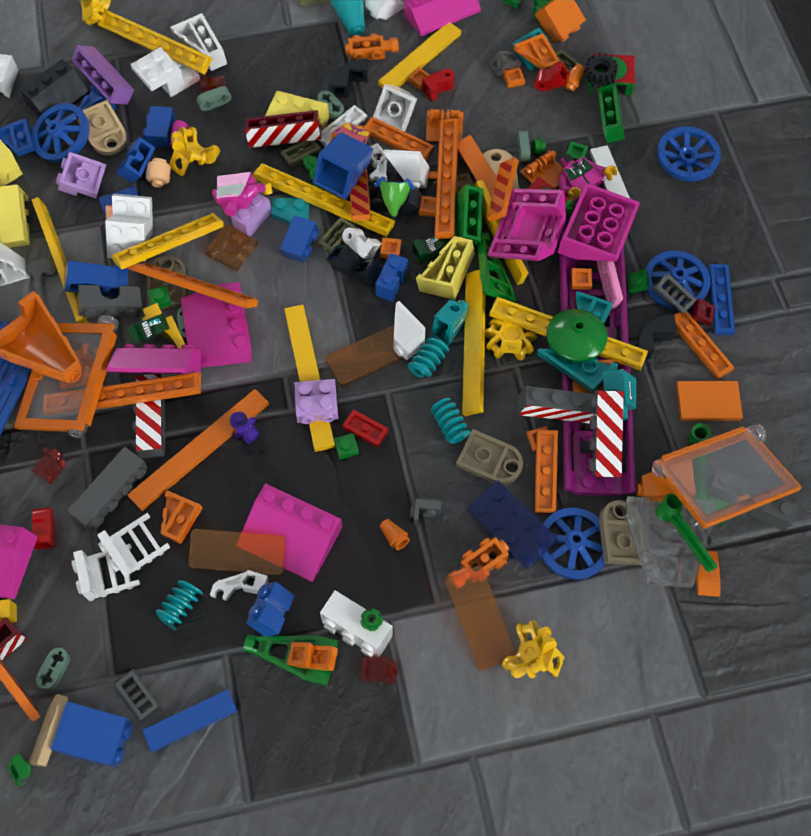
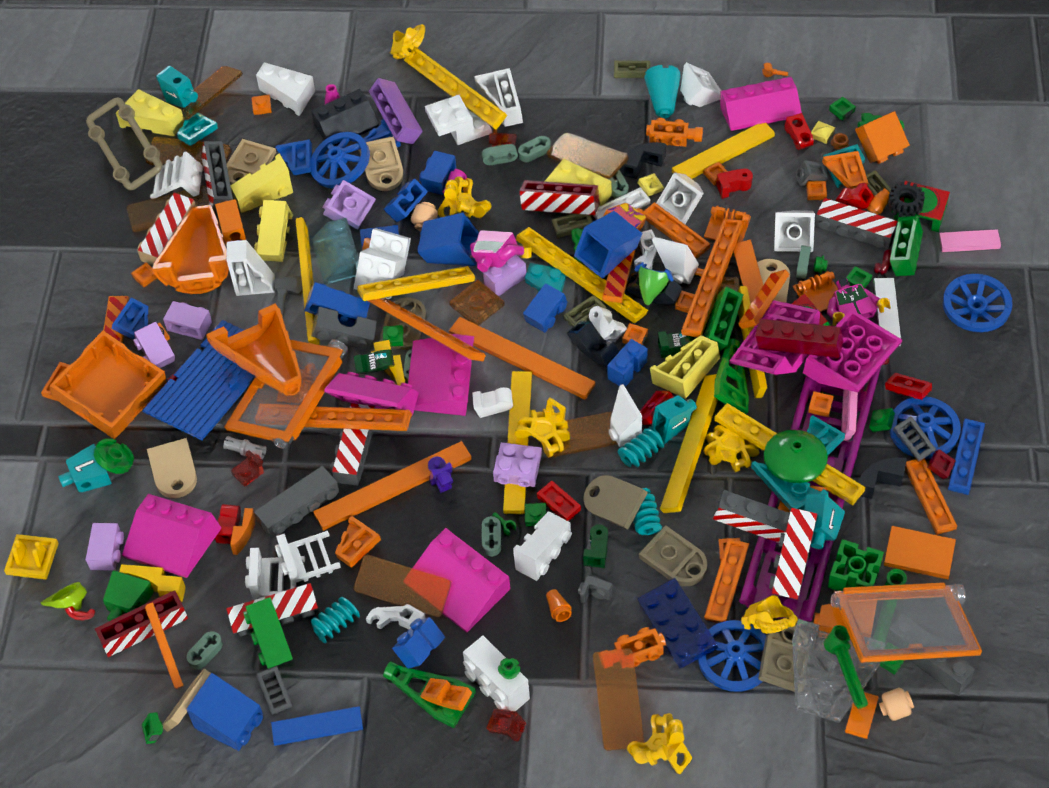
camera: 20 degrees right, 10 degrees down
(35, 69) = (331, 93): none -> dark pink cone
(39, 443) = (243, 446): none -> light grey pin
(60, 537) = (242, 533): none -> orange slope
(80, 224) = (336, 251): none -> clear light blue slope
(112, 609) = (287, 606): none -> brick
(115, 638) = (267, 633): none -> green brick
(188, 191) = (448, 240): none -> blue slope
(245, 86) = (534, 148): none -> sand green beam
(274, 343) = (492, 402): none -> white leg
(291, 292) = (524, 358): none -> orange tile
(298, 82) = (588, 155): none -> clear orange piece
(313, 477) = (487, 536): none -> sand green beam
(319, 462) = (504, 523): none -> green hand
(332, 357) = (545, 426): none -> yellow piece
(363, 100) = (650, 184): none -> light yellow tile
(363, 477) = (542, 546): none -> white wedge
(417, 471) = (599, 543): none -> dark green leg
(420, 417) = (616, 501): none -> dark tan tile
(429, 309) = (649, 408): none -> red plate
(483, 25) = (799, 131): none -> red leg
(503, 22) = (822, 132): none -> light yellow tile
(507, 118) = (793, 230): none -> white slope
(521, 28) = (839, 141): none -> dark orange plate
(551, 220) = (799, 338): none -> dark red brick
(559, 101) = (856, 223): none -> brick
(589, 498) = (762, 615): none -> yellow piece
(597, 130) = (882, 268): none -> dark red arm
(652, 244) = (908, 386): none -> red plate
(660, 431) = (855, 567): none -> green brick
(661, 97) = (969, 240): none -> bright pink tile
(736, 555) = (896, 704): none -> light nougat head

